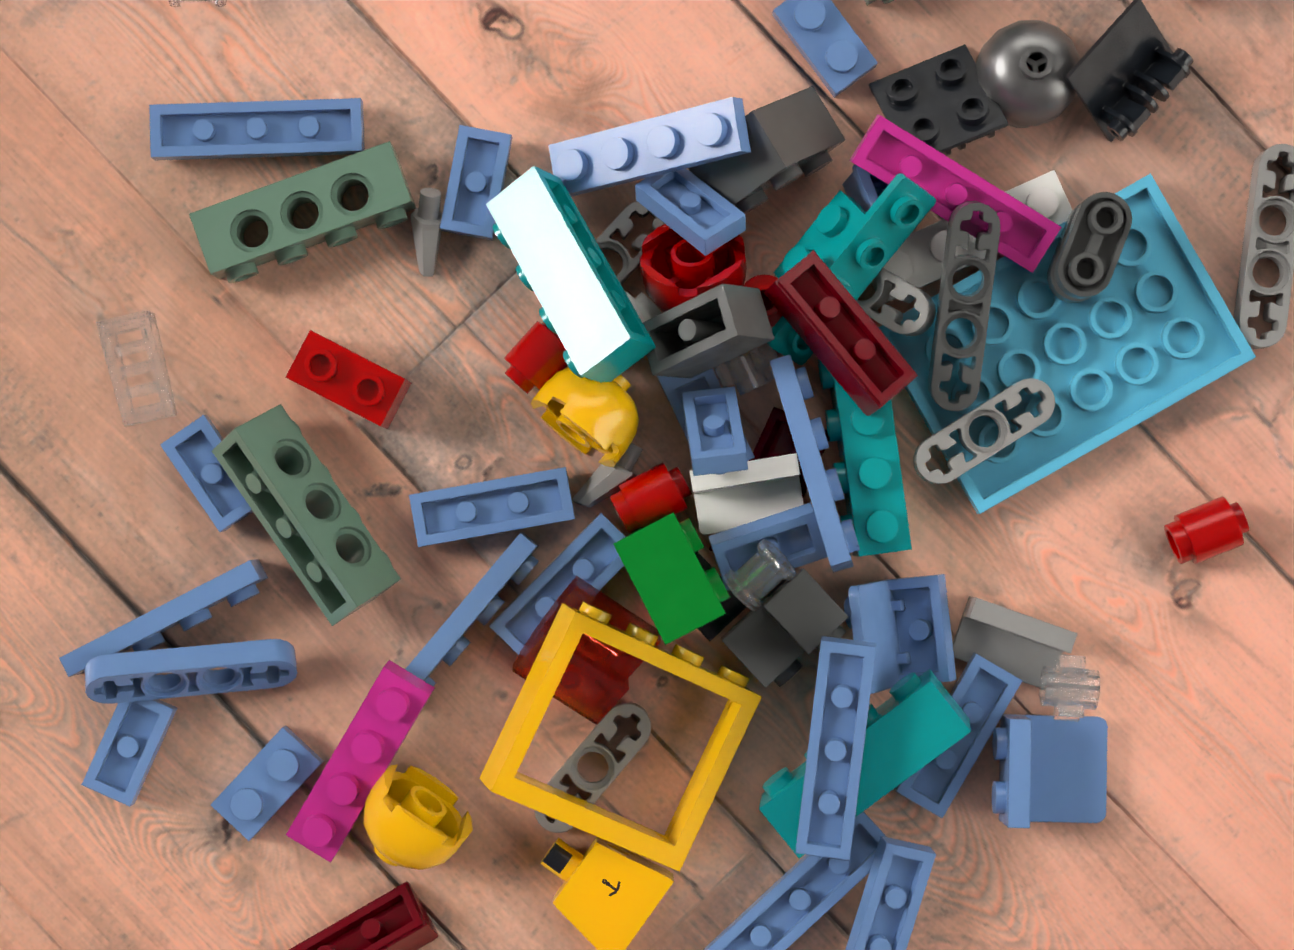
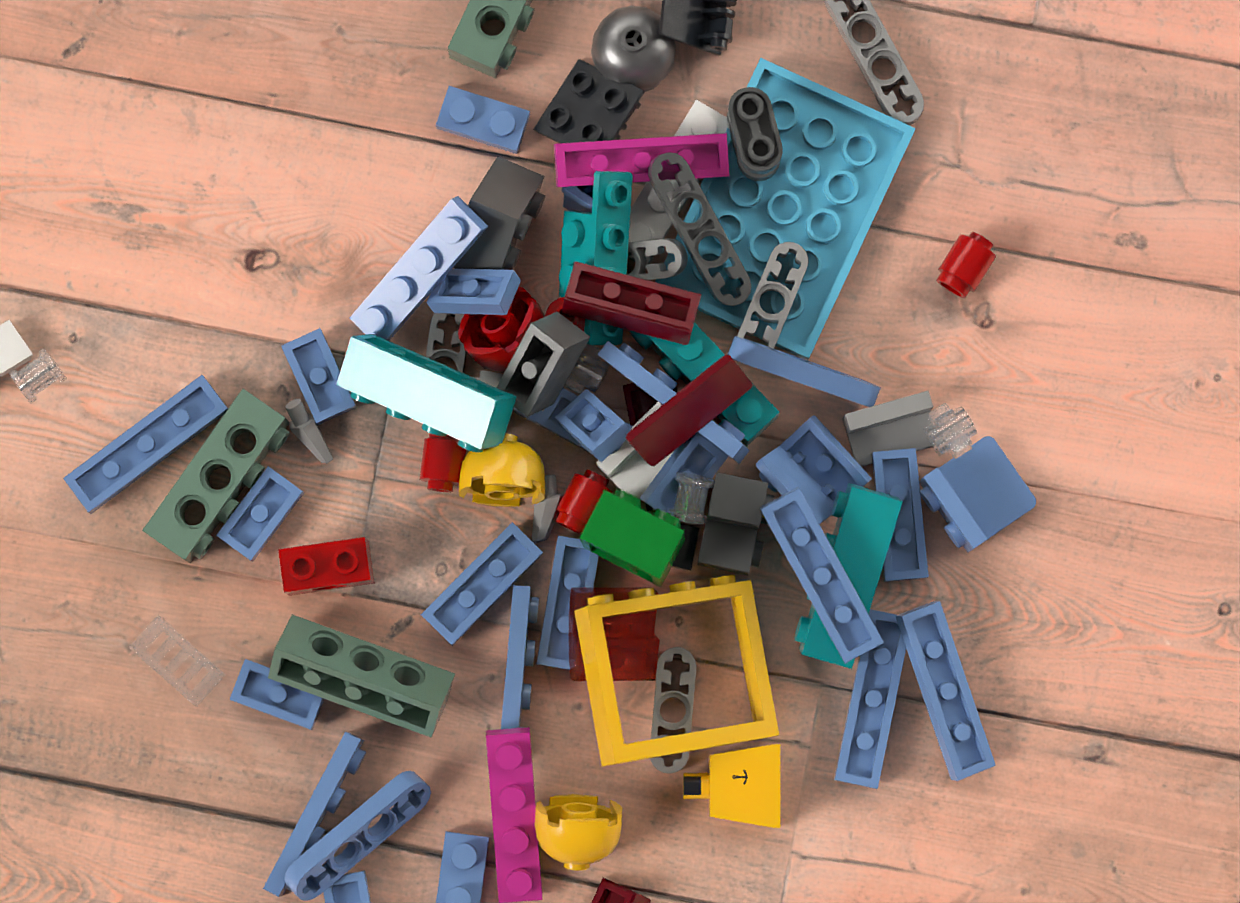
camera: 35 degrees left, 5 degrees down
(321, 280) = (260, 514): none -> medium blue plate
(821, 487) = (689, 410): none -> dark red slope
(964, 525) = (803, 371): none -> medium blue beam

